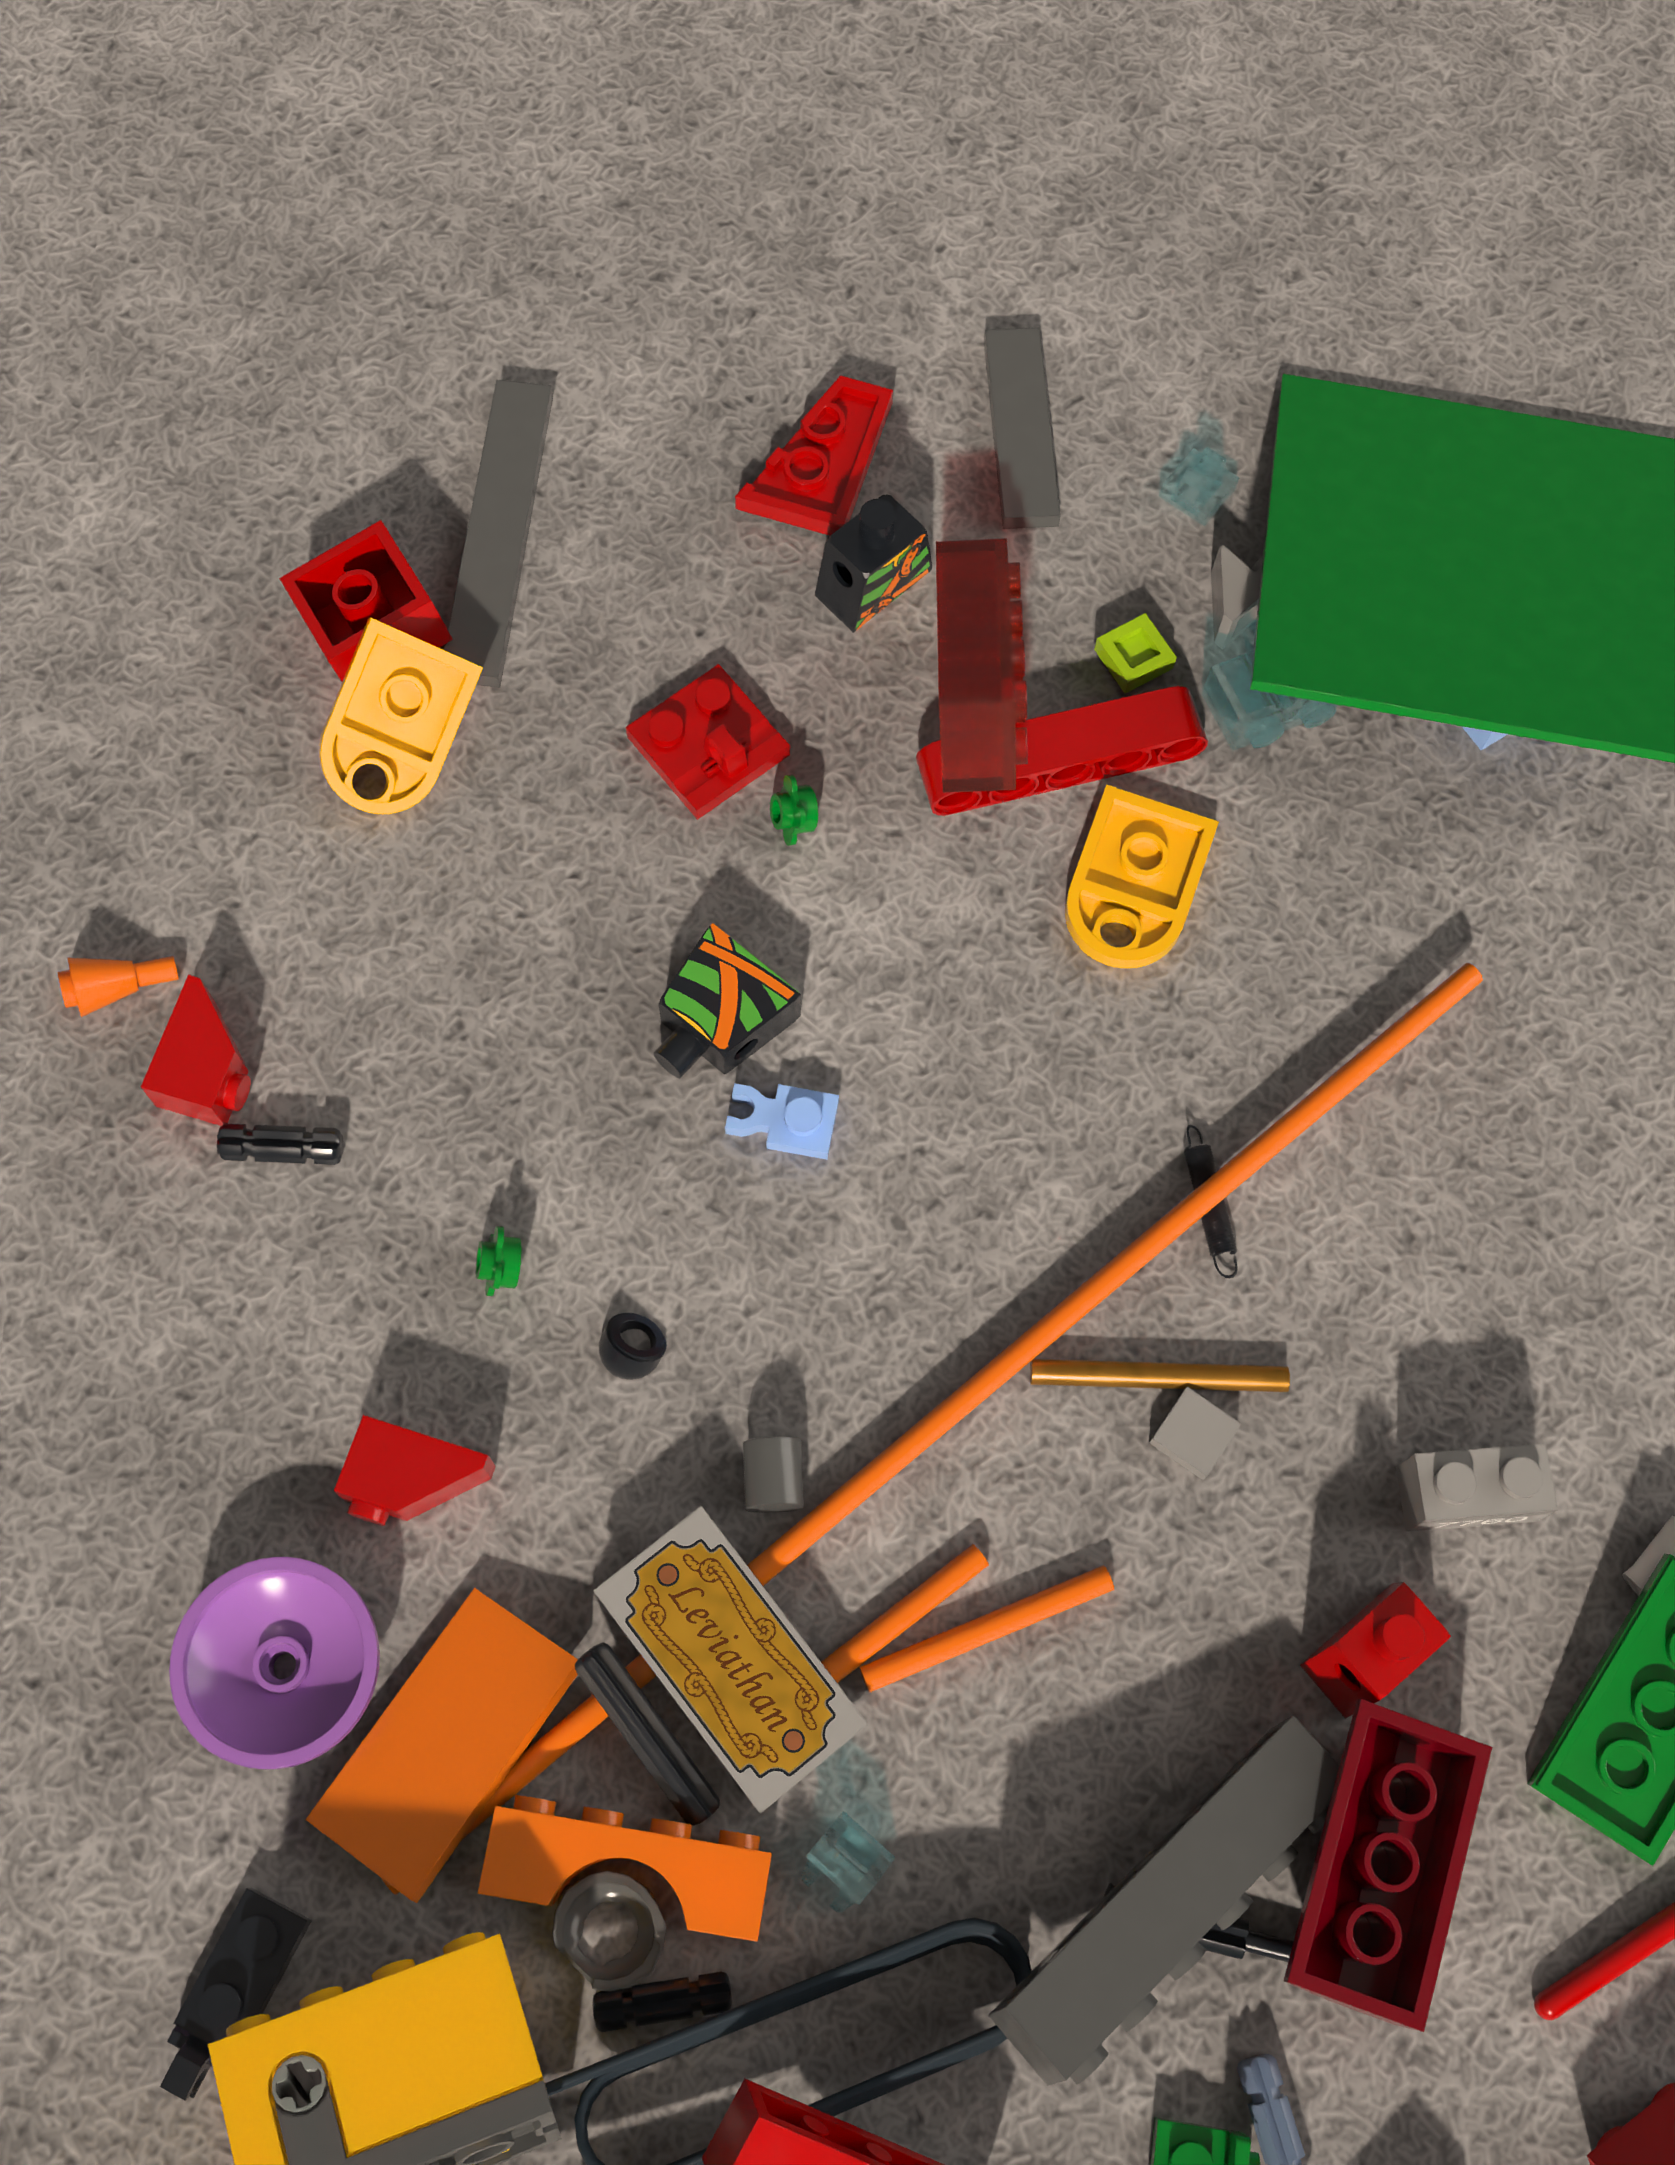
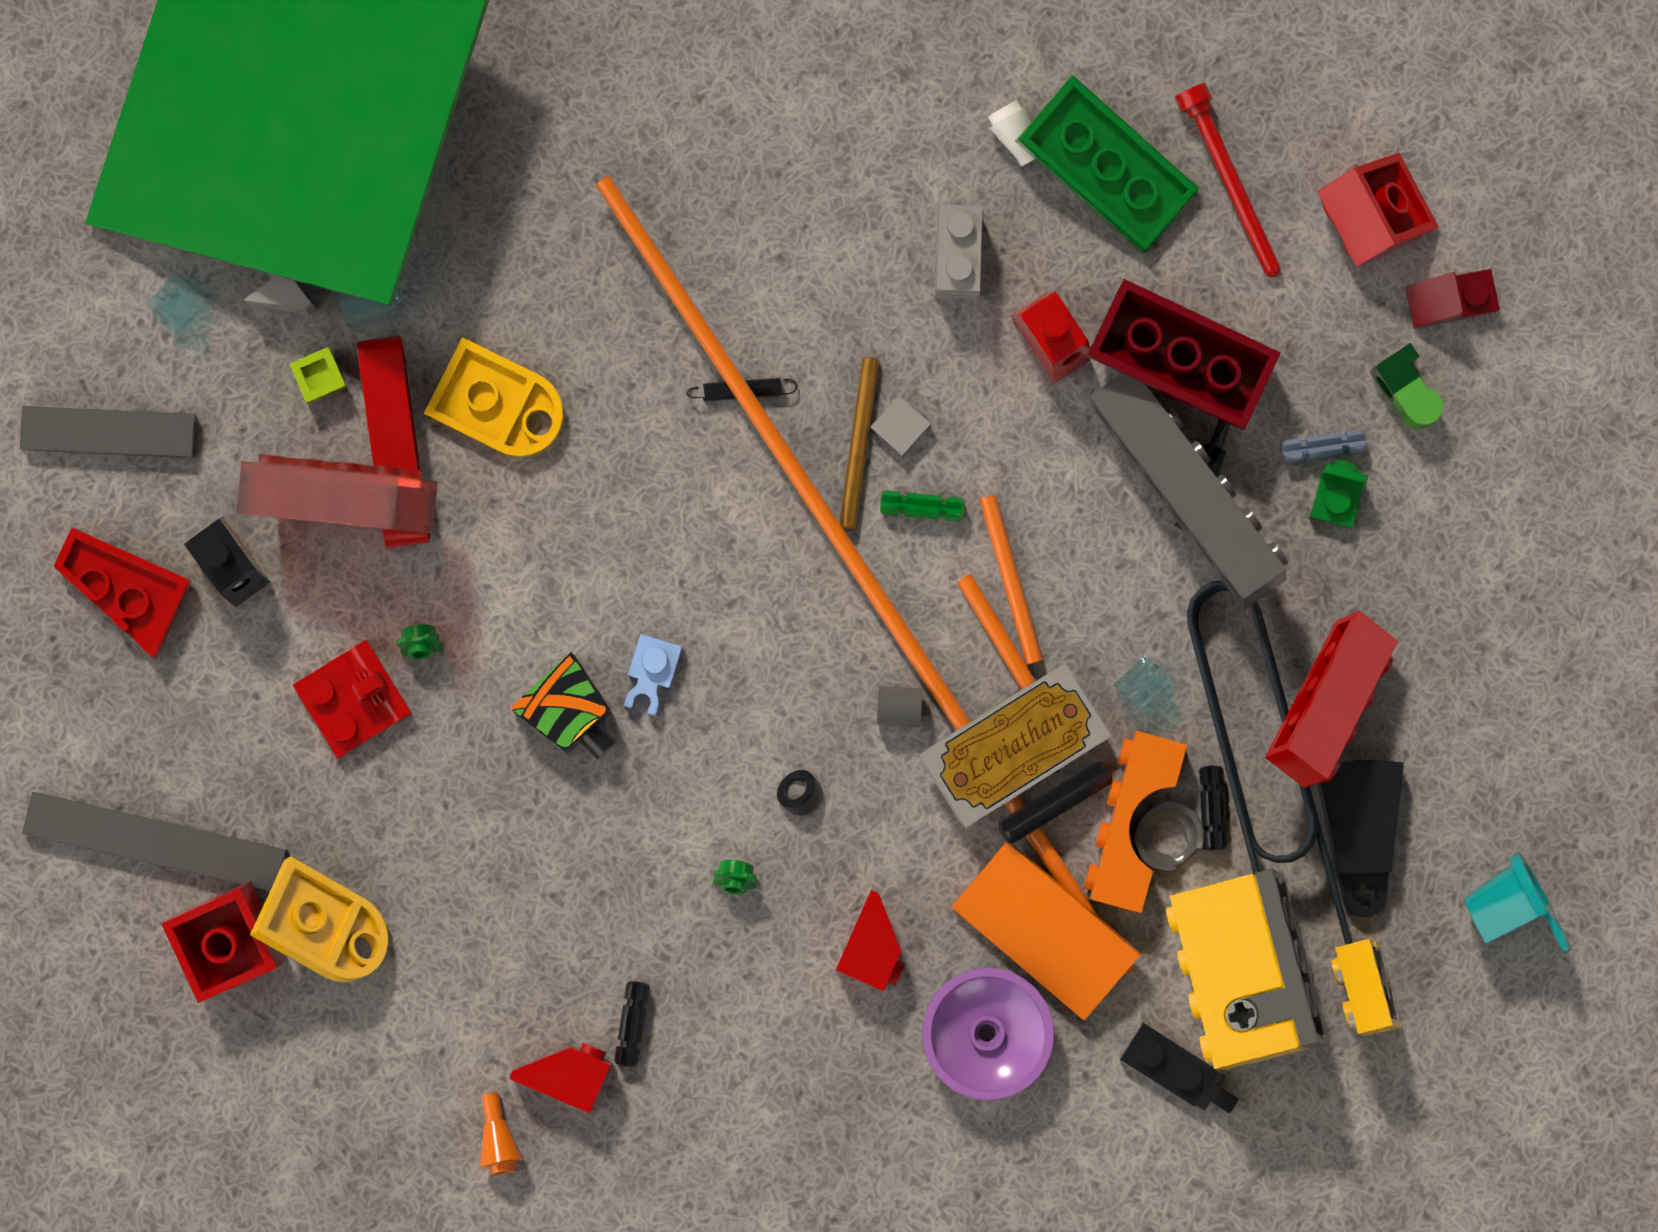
camera: 80 degrees left, 15 degrees up
(1080, 1479) = (922, 506): none -> green axle

